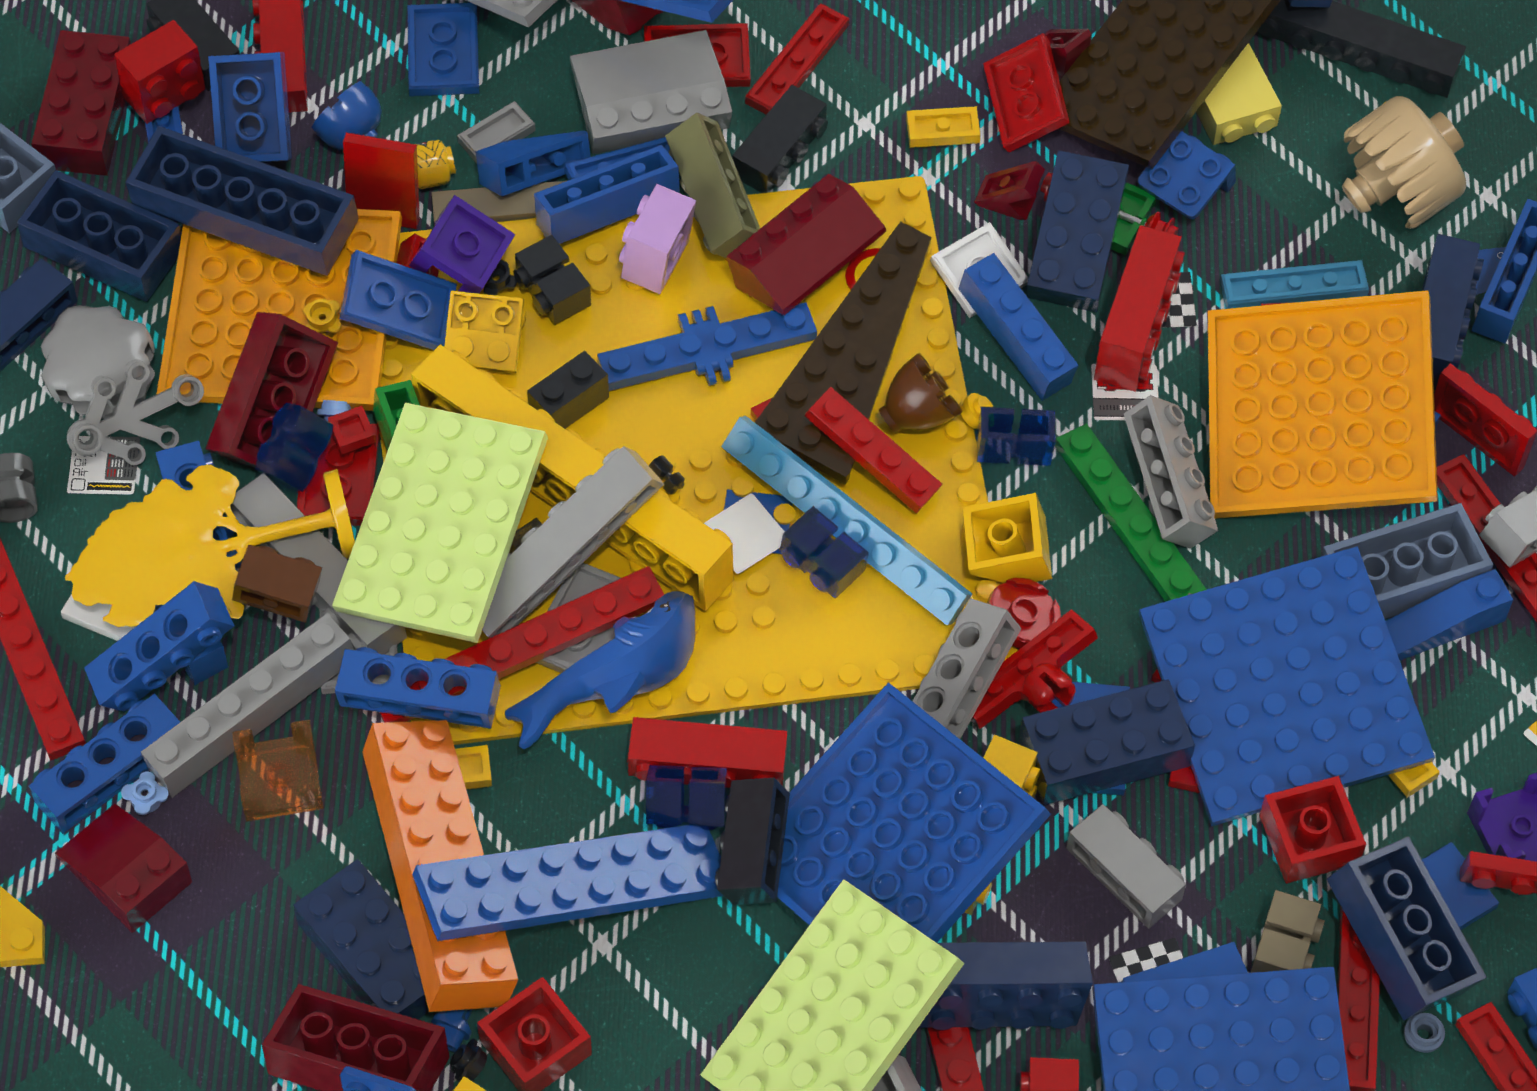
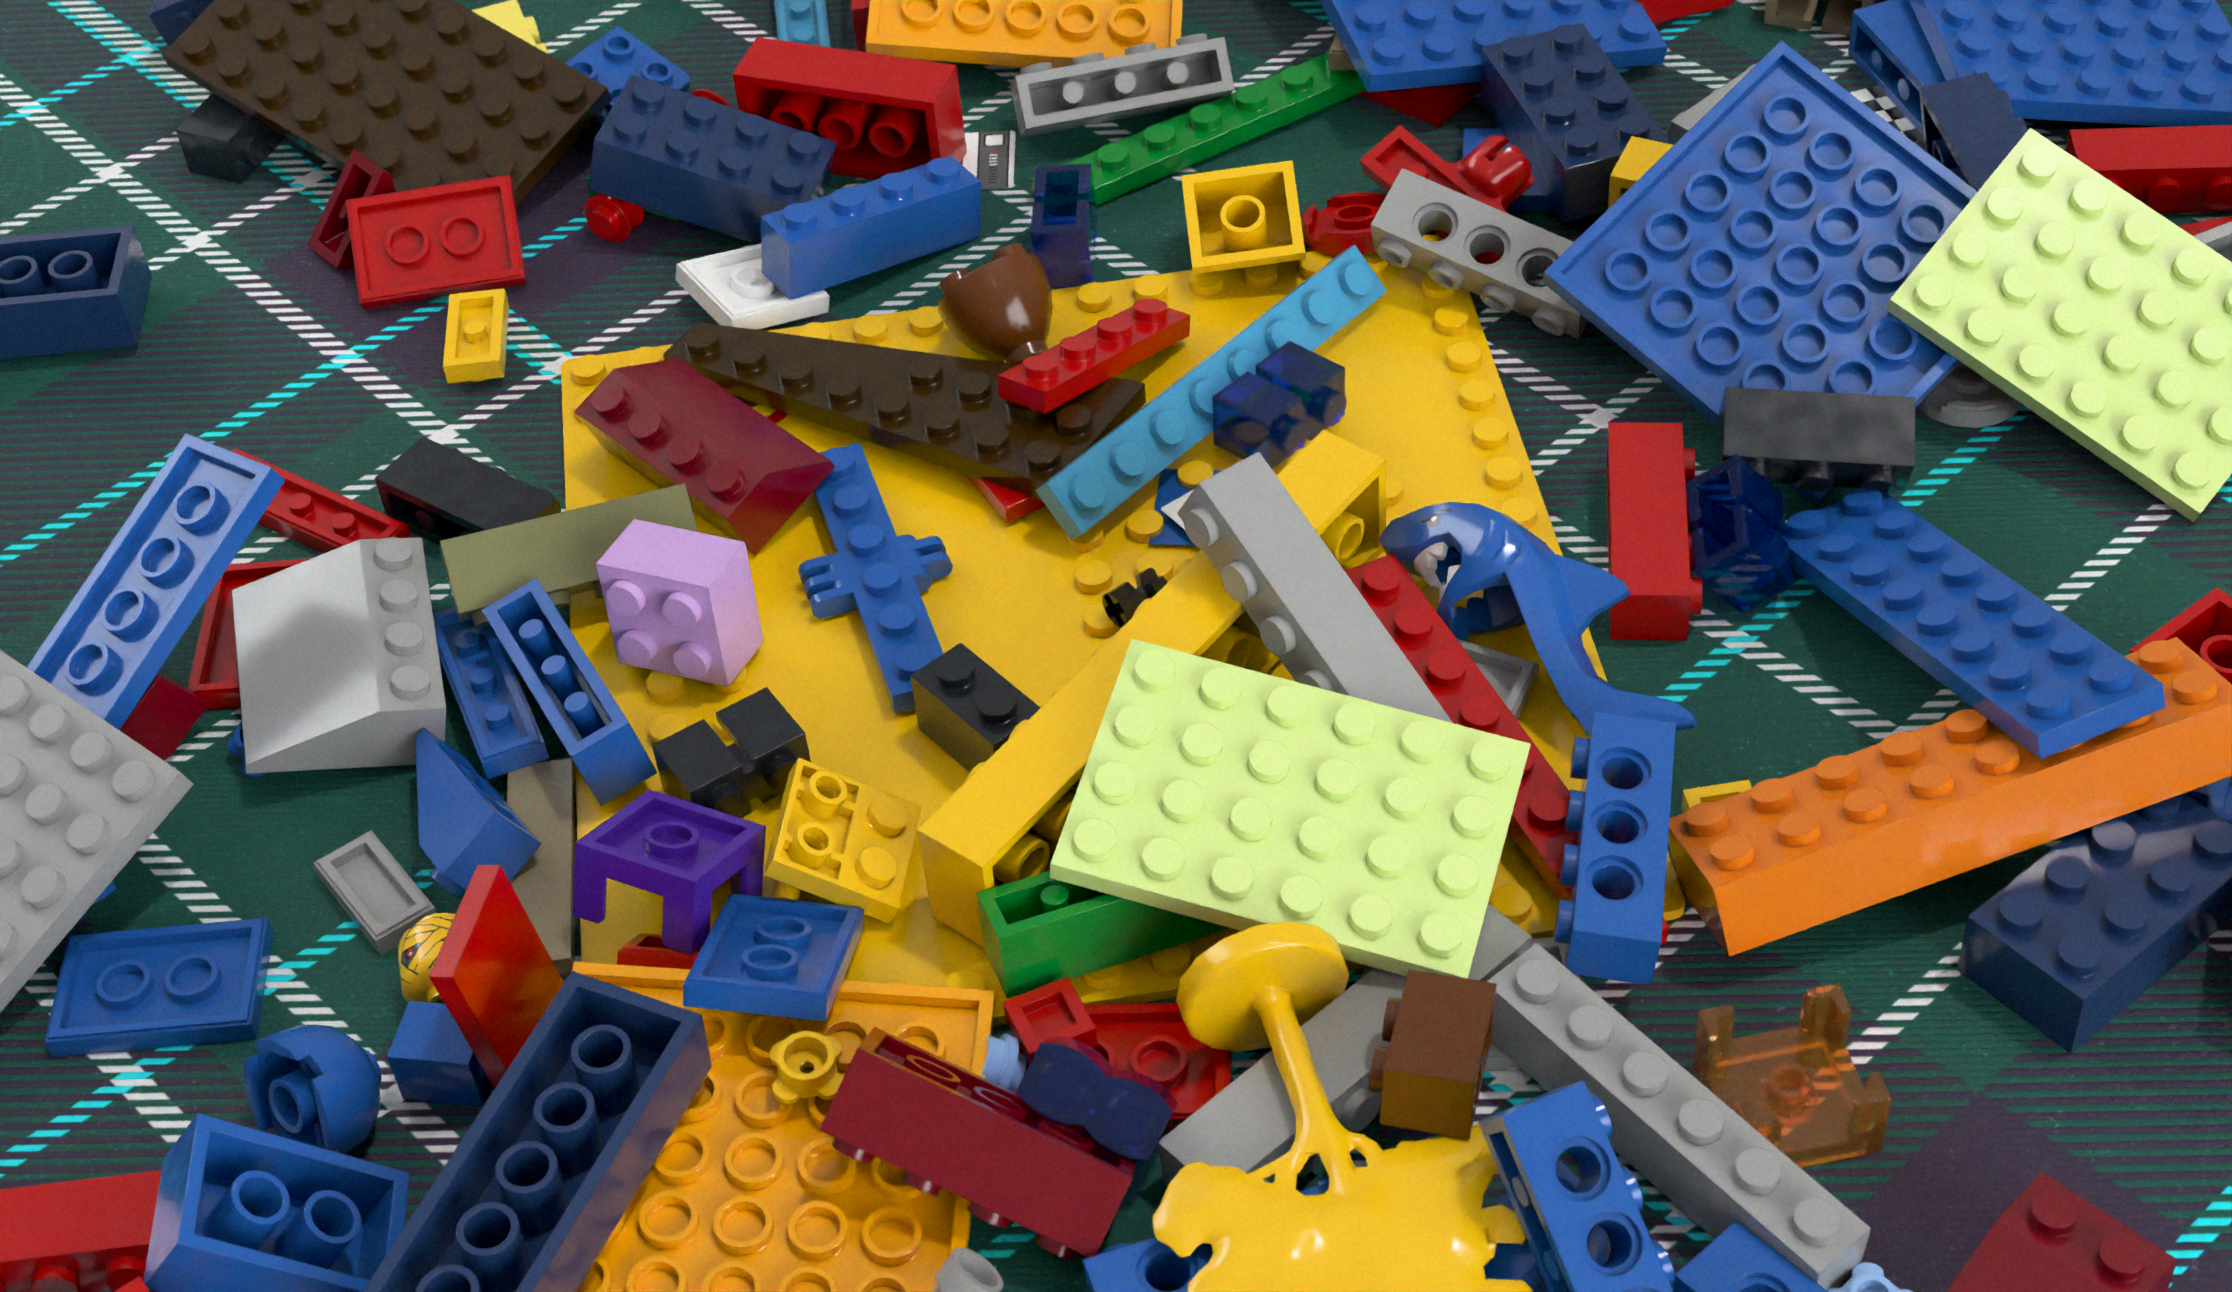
camera: 85 degrees left, 15 degrees down
(1011, 190) = (608, 252): dark red slope -> none

